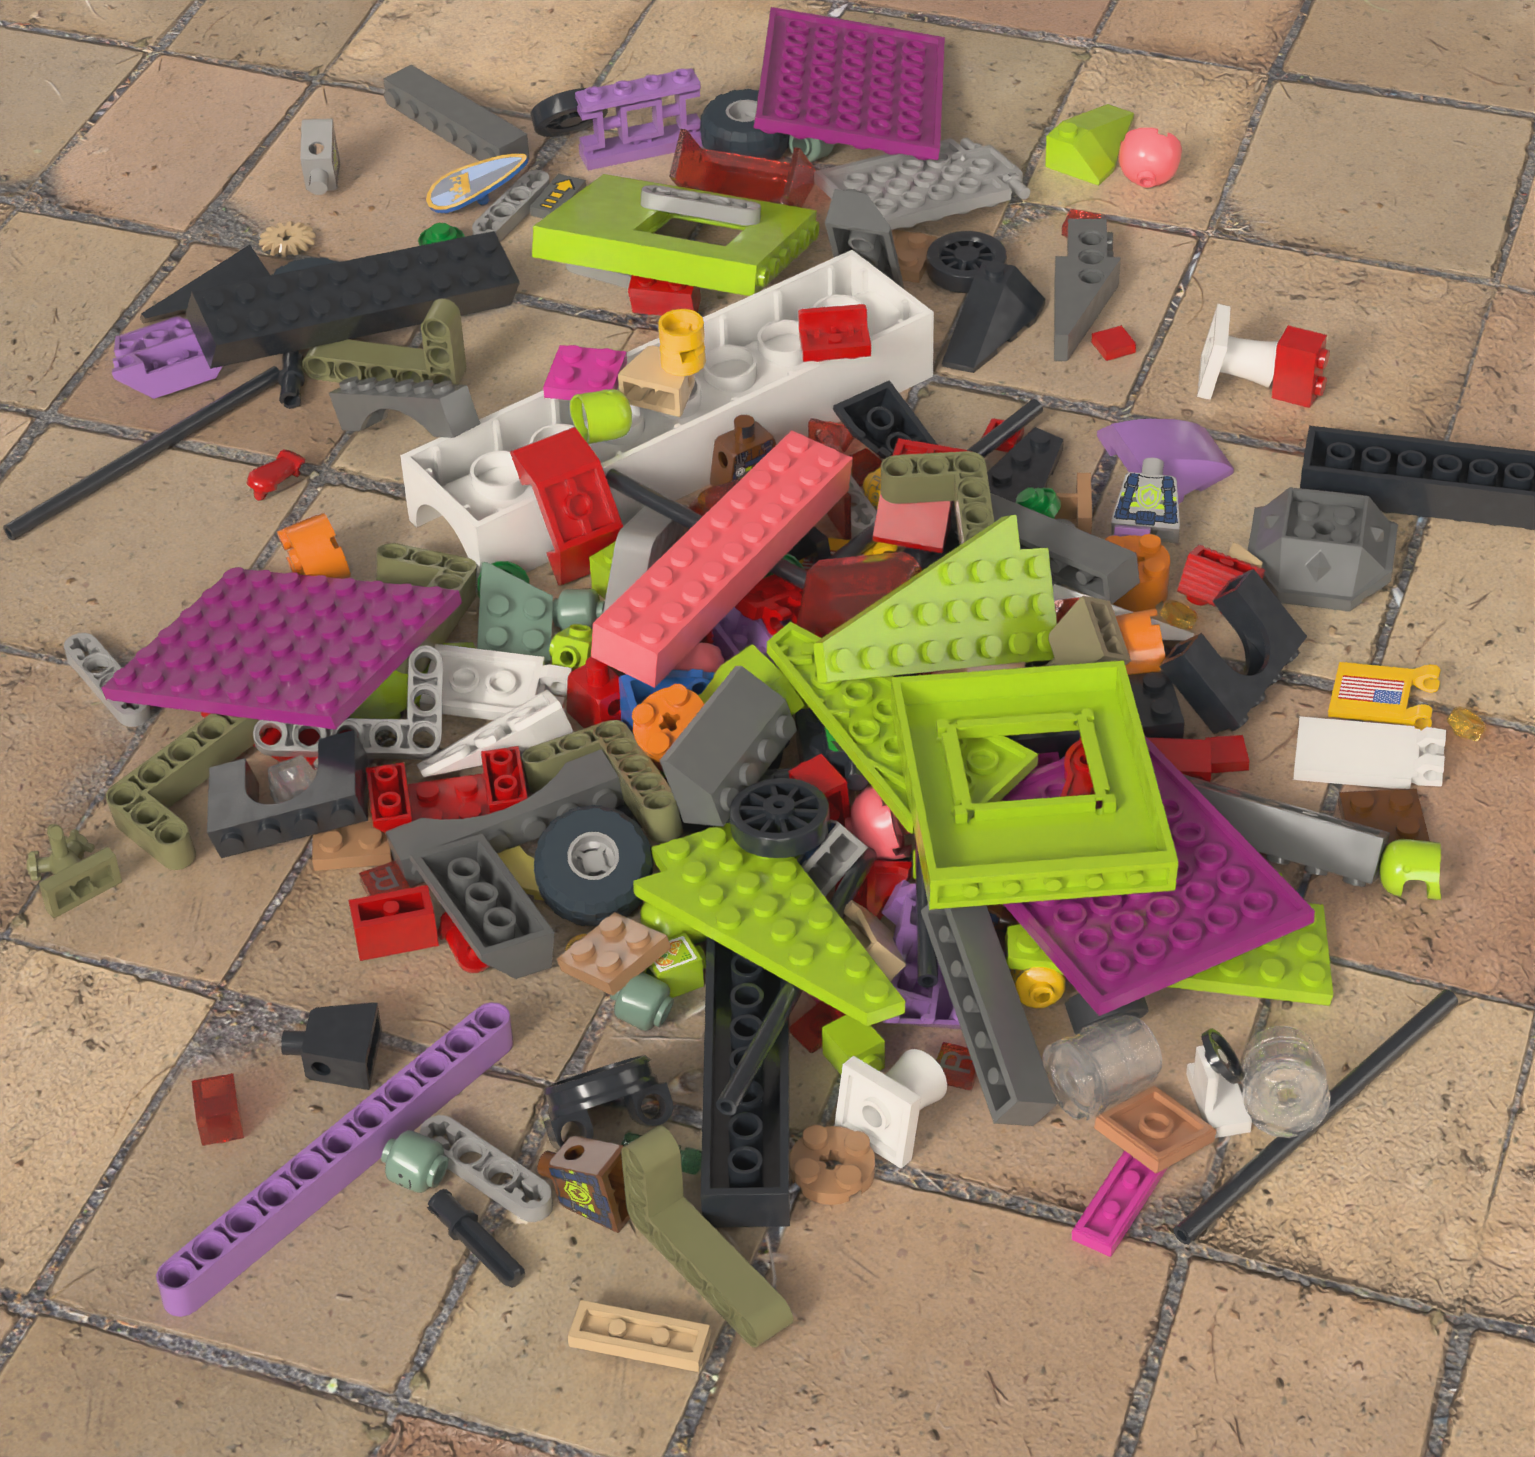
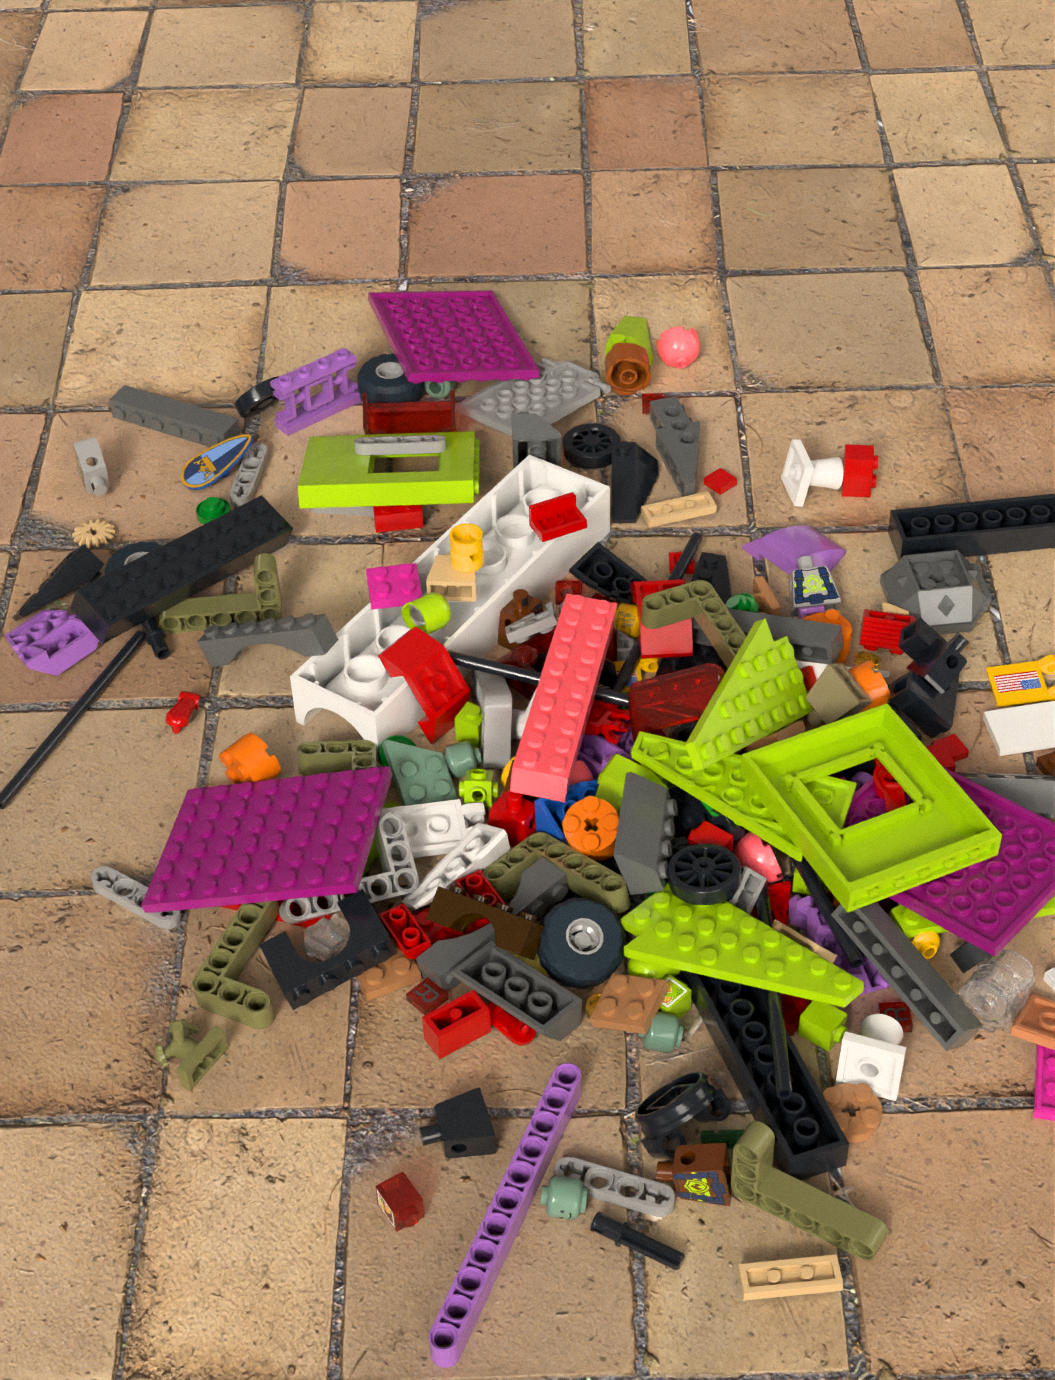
camera: 20 degrees left, 0 degrees up
(506, 827) = (512, 932): none -> dark brown arch
(555, 194) = (279, 460): dark grey tile -> none
(727, 467) = (531, 624): none -> light grey wing
(1035, 366) = (678, 509): none -> tan plate
(1062, 170) = (627, 368): none -> dark orange brick
(1242, 645) = (940, 662): none -> black torso

